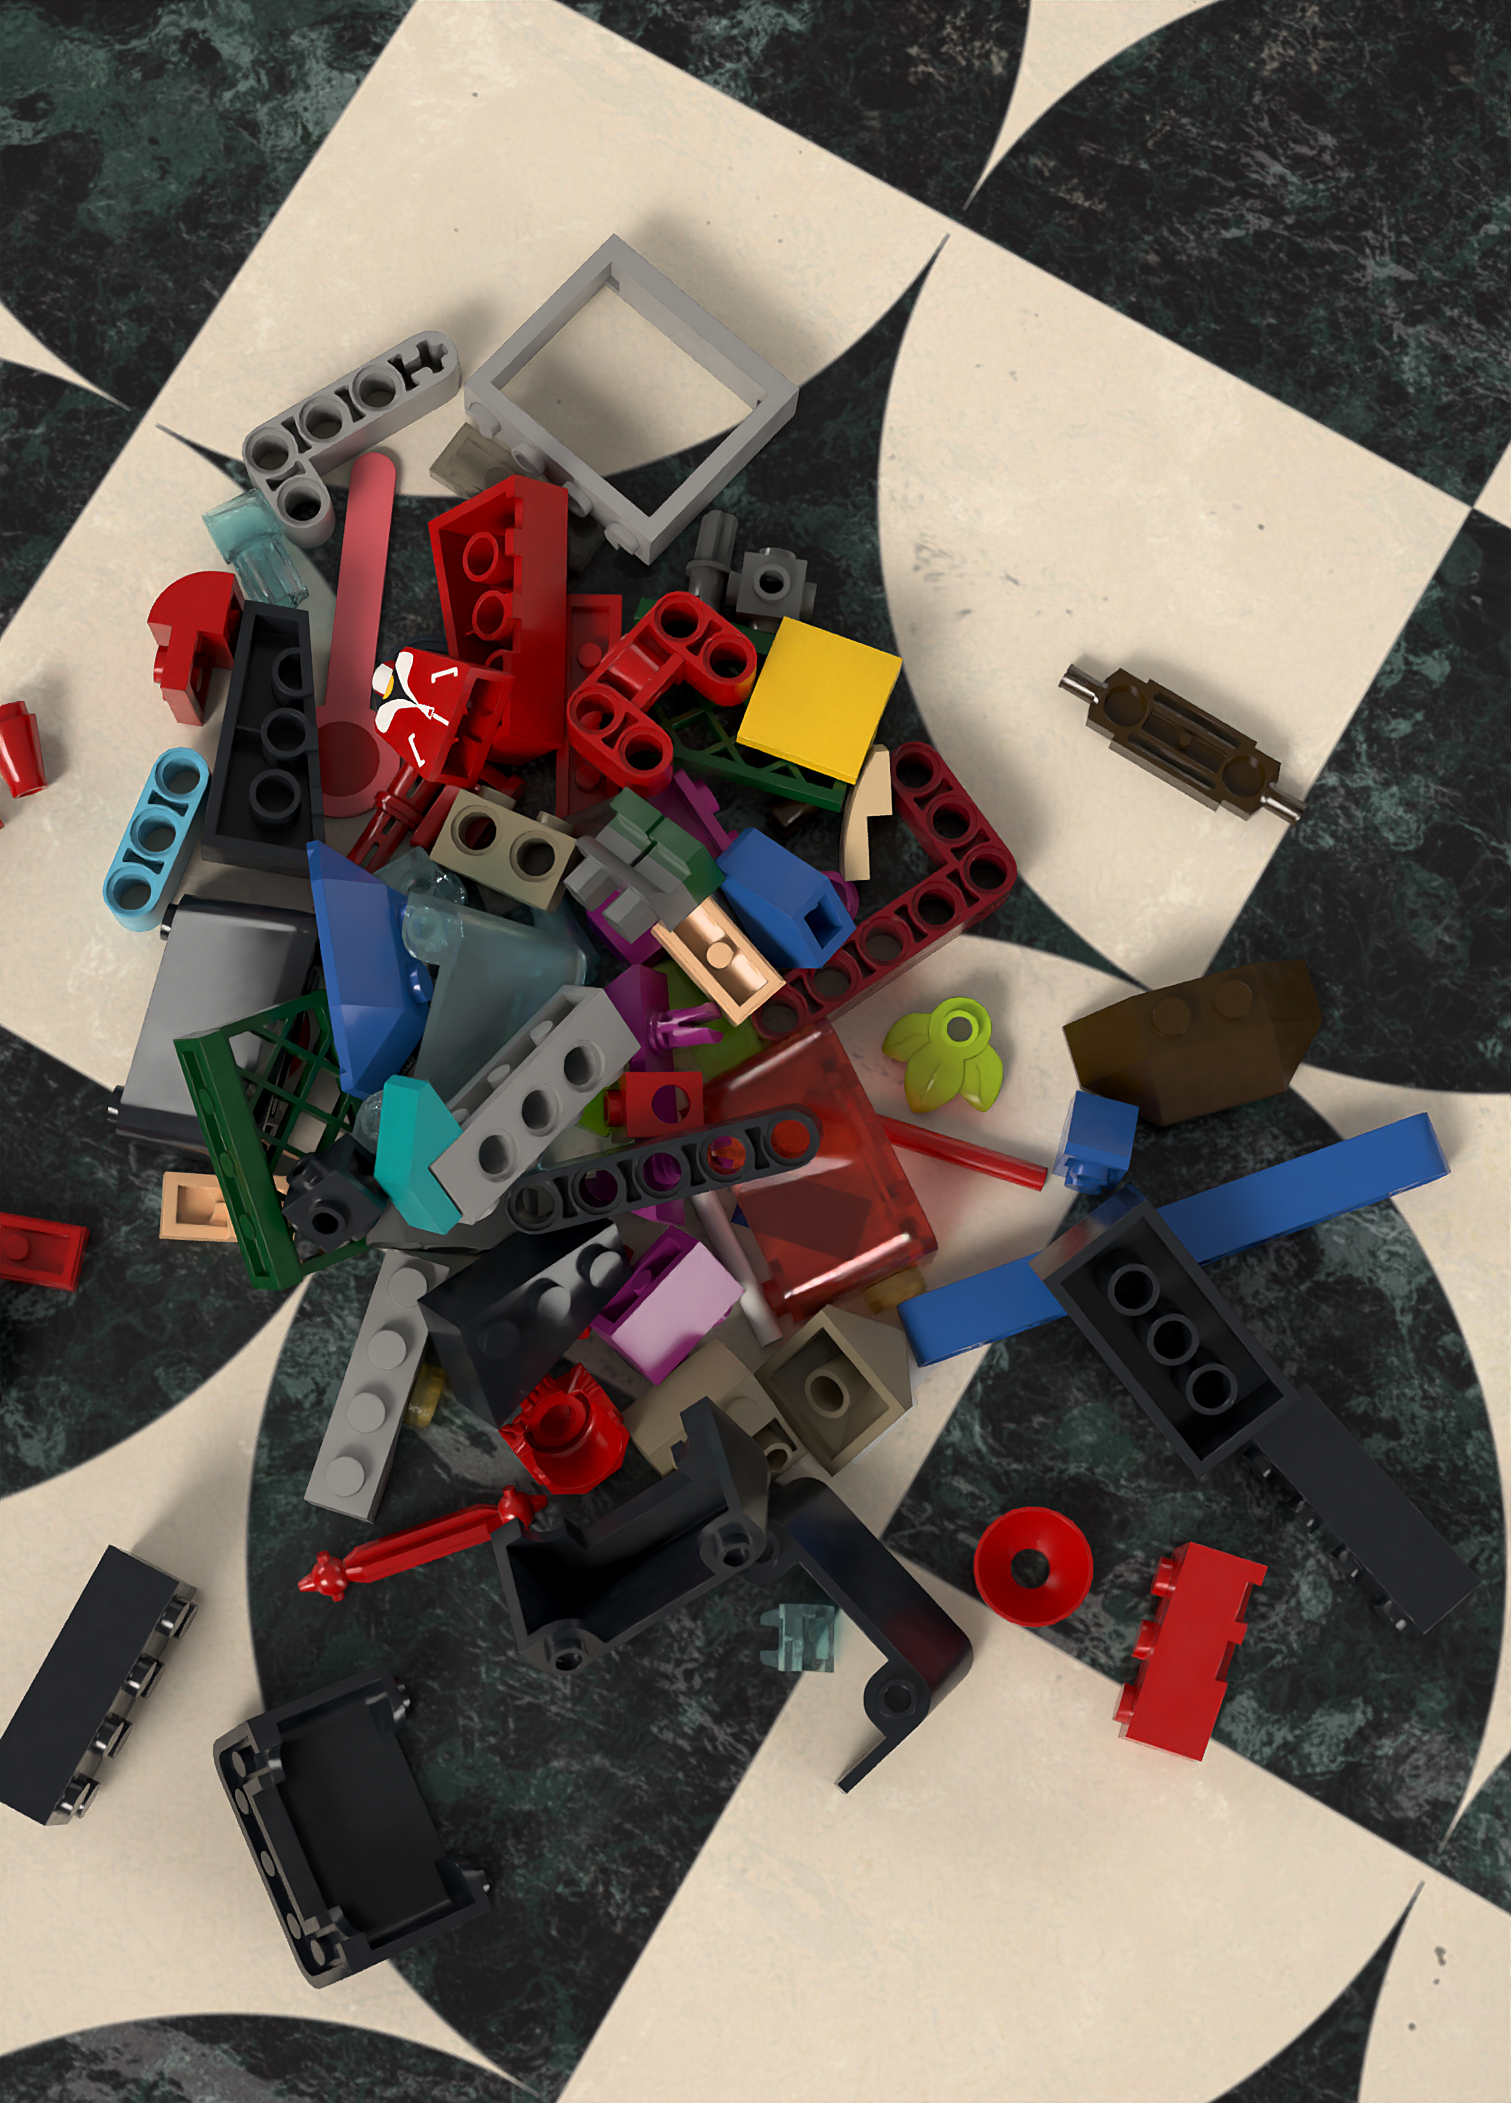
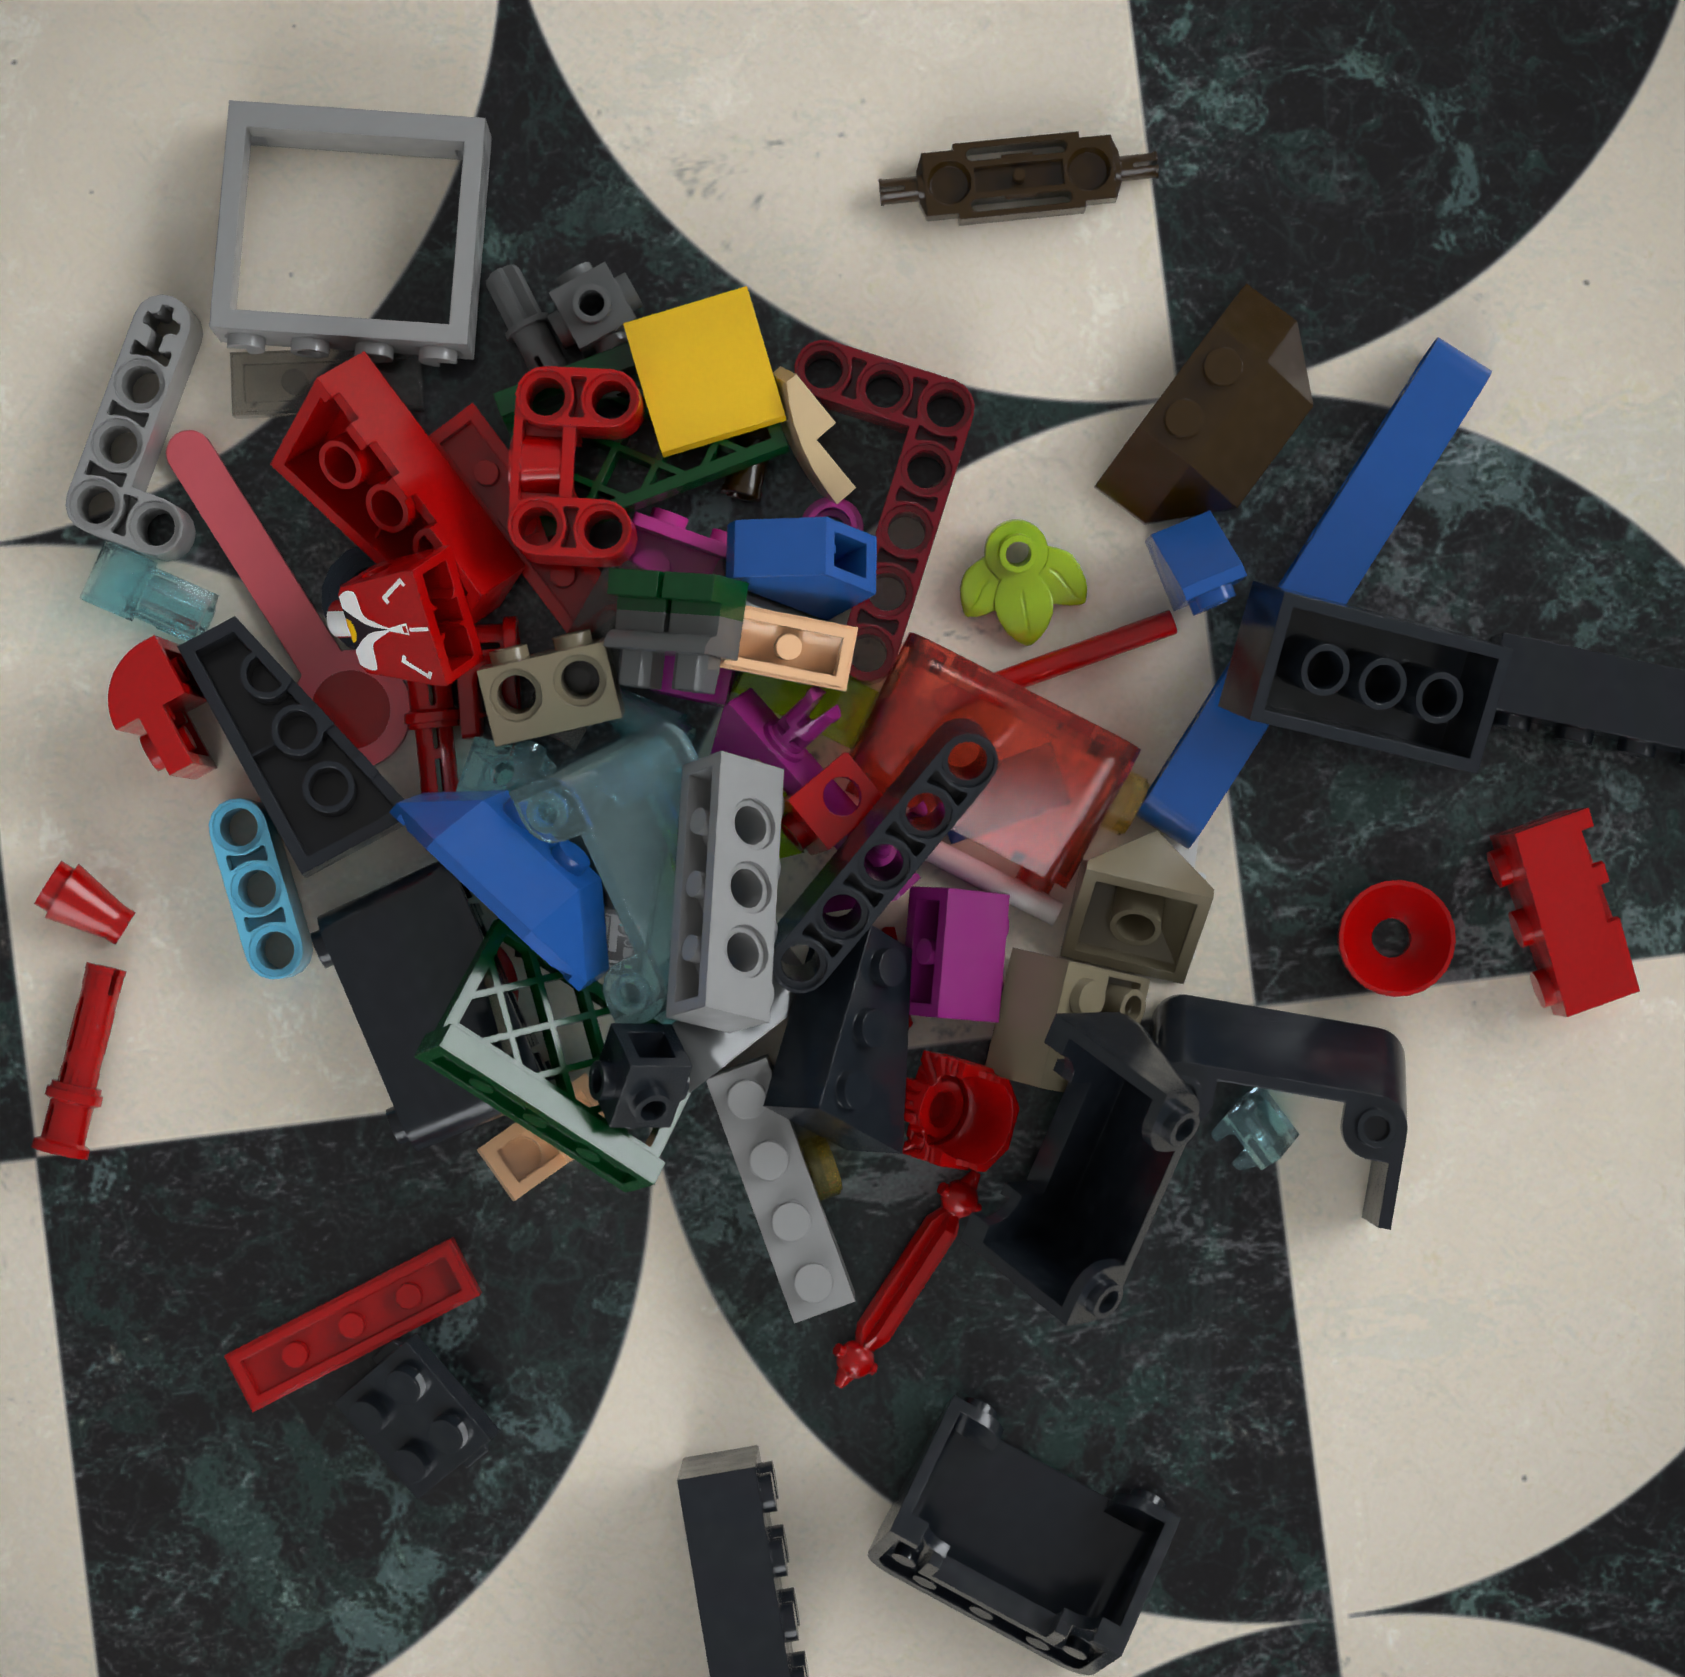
camera: 30 degrees left, 10 degrees up
(410, 1138) = (671, 996): teal slope -> none

